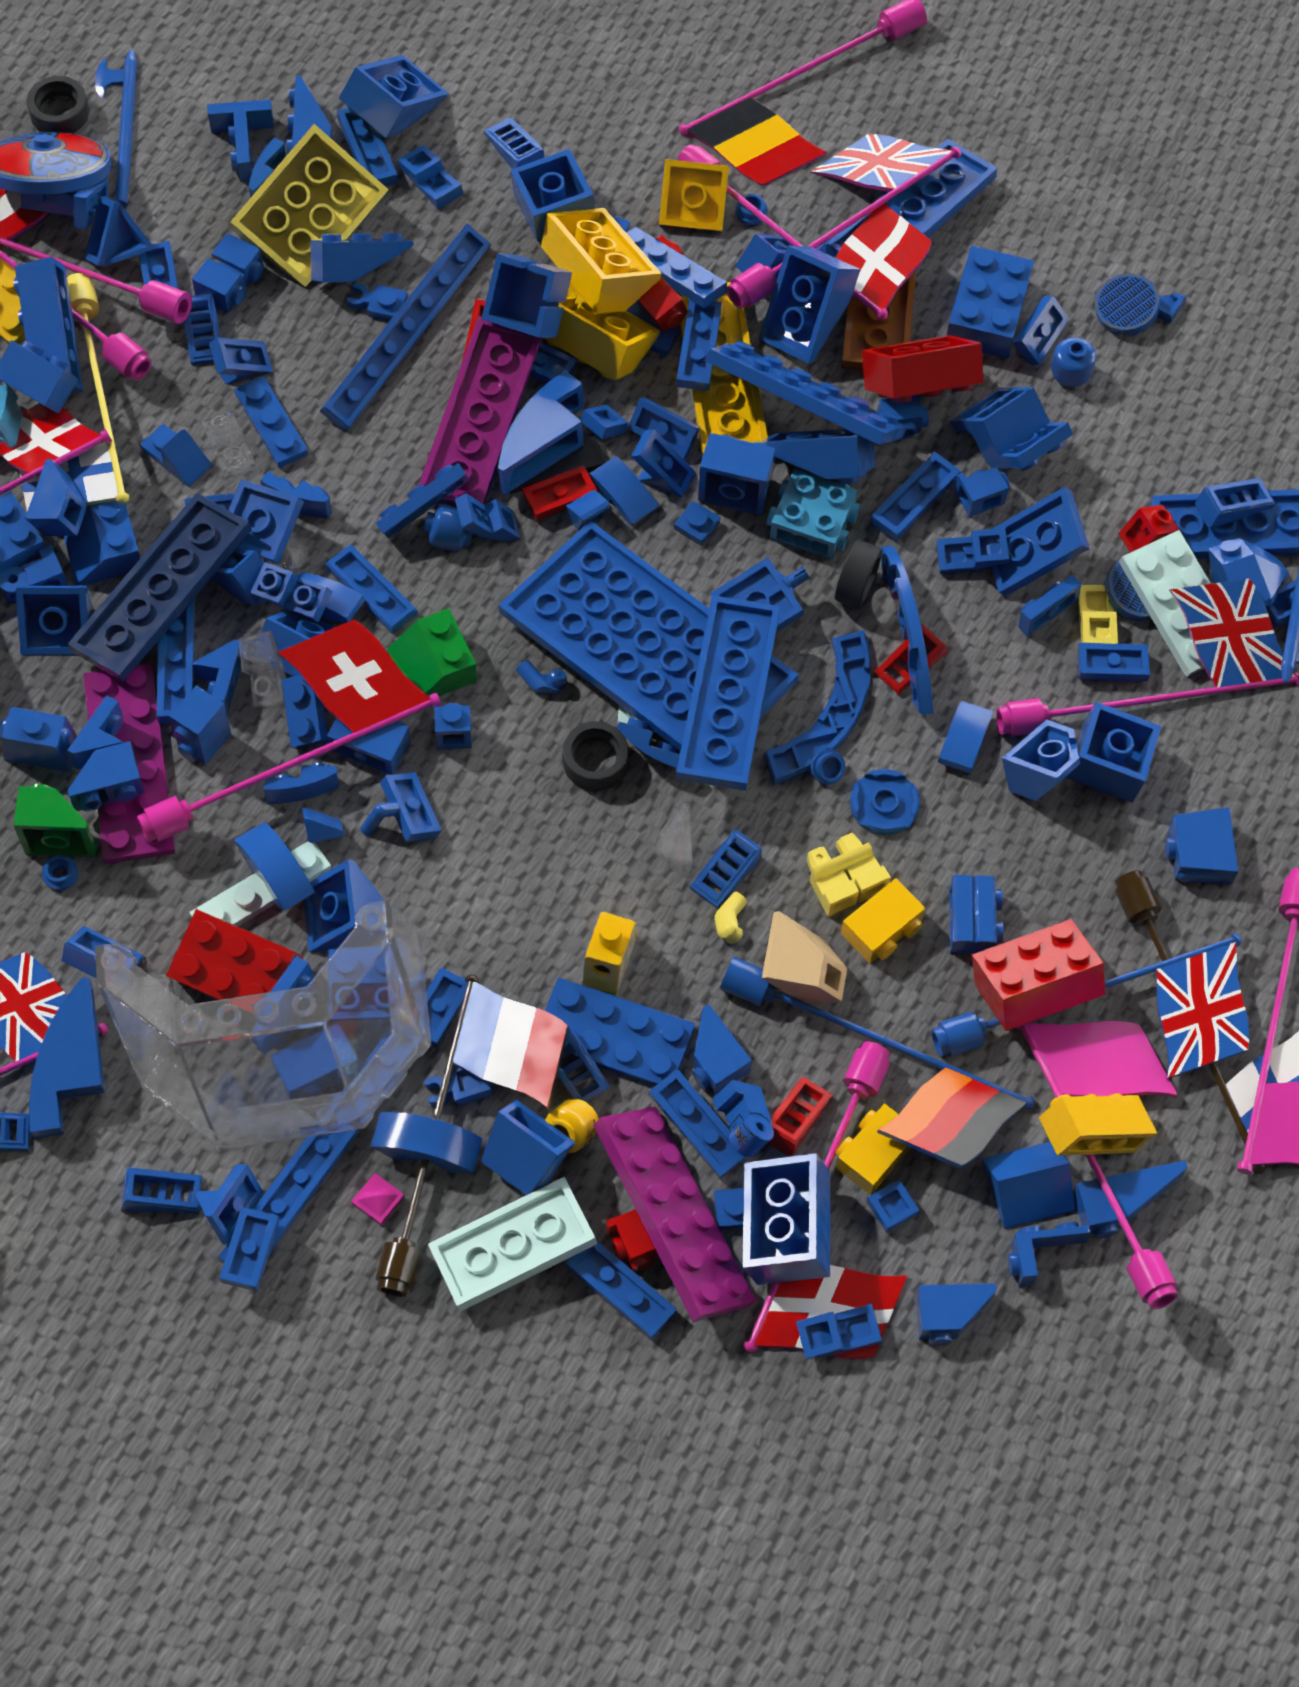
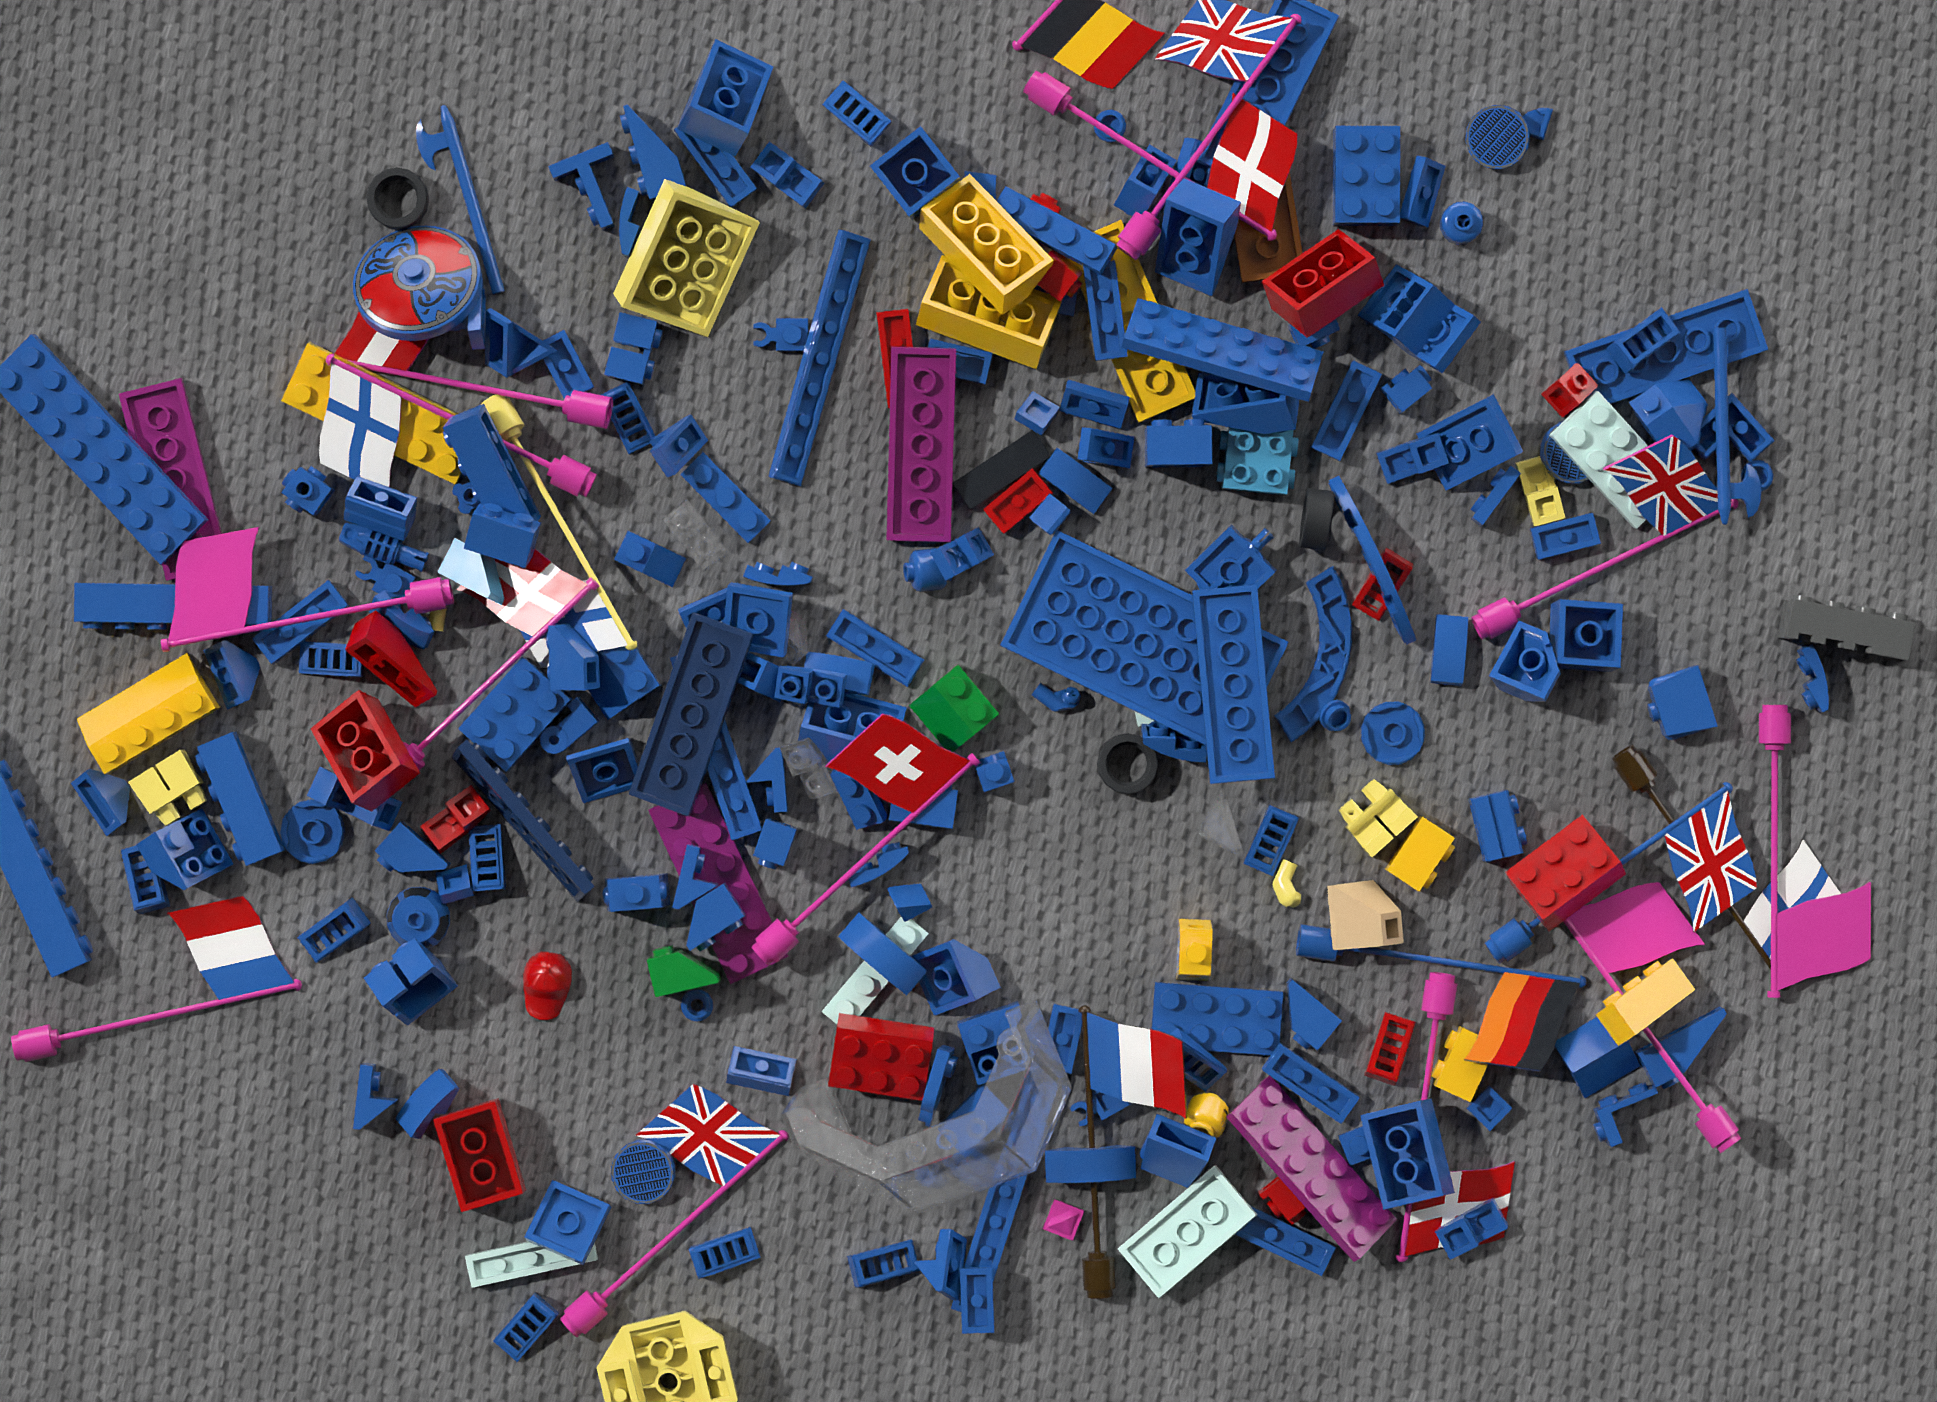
camera: 10 degrees left, 25 degrees up
(66, 1062) = (769, 1180): blue slope -> none
(350, 259) = (746, 300): blue slope -> none
(408, 805) = (978, 861): blue plate -> none
(422, 499) = (897, 554): blue plate -> none
(526, 295) = (935, 326): blue piece -> none
(542, 432) = (984, 447): blue slope -> none
(693, 195) = (1052, 133): yellow plate -> none
(697, 523) = (1151, 494): blue plate -> none
(746, 1116) = (1350, 1070): blue leg -> none
(949, 1309) = (1557, 1185): blue slope -> none

